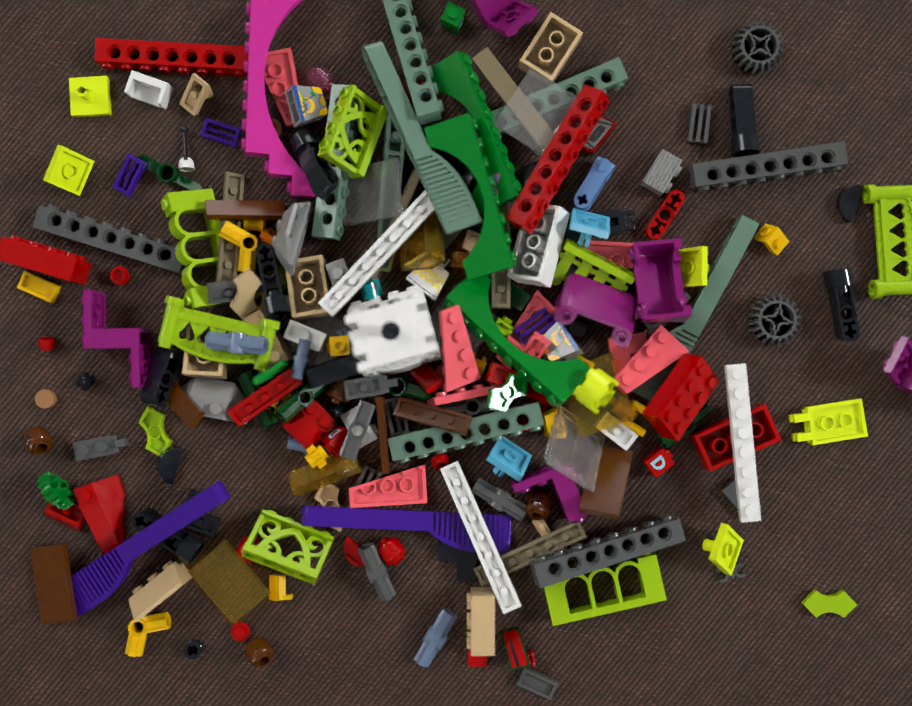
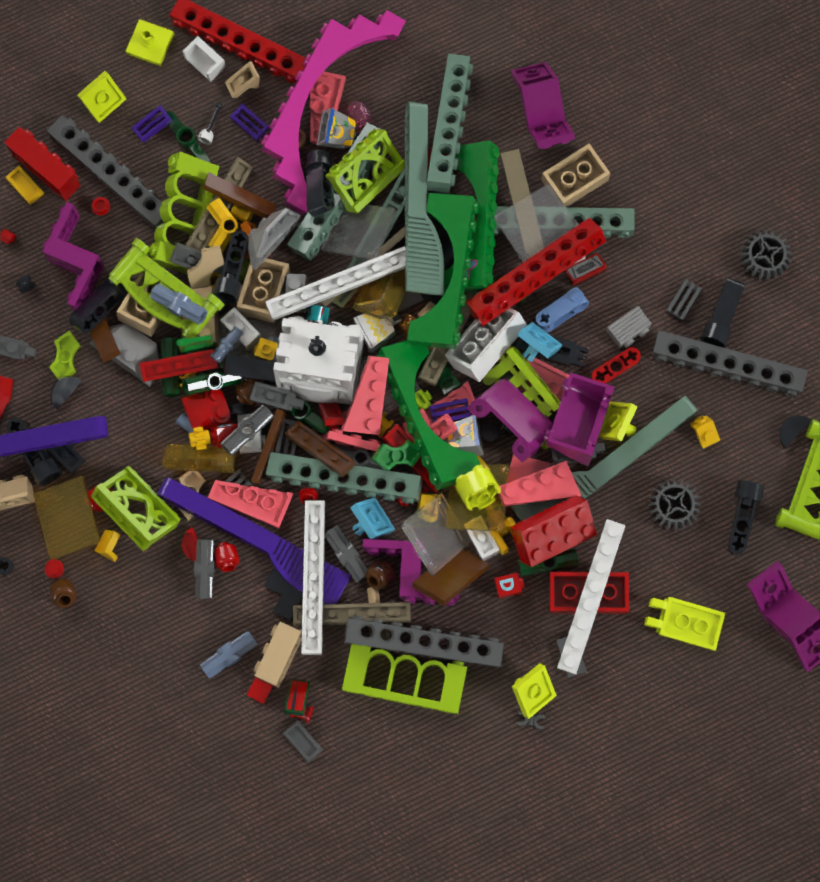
camera: 25 degrees right, 10 degrees down
(453, 18) = (501, 112): green brick -> none
(835, 603) = (620, 796): lime tile -> none

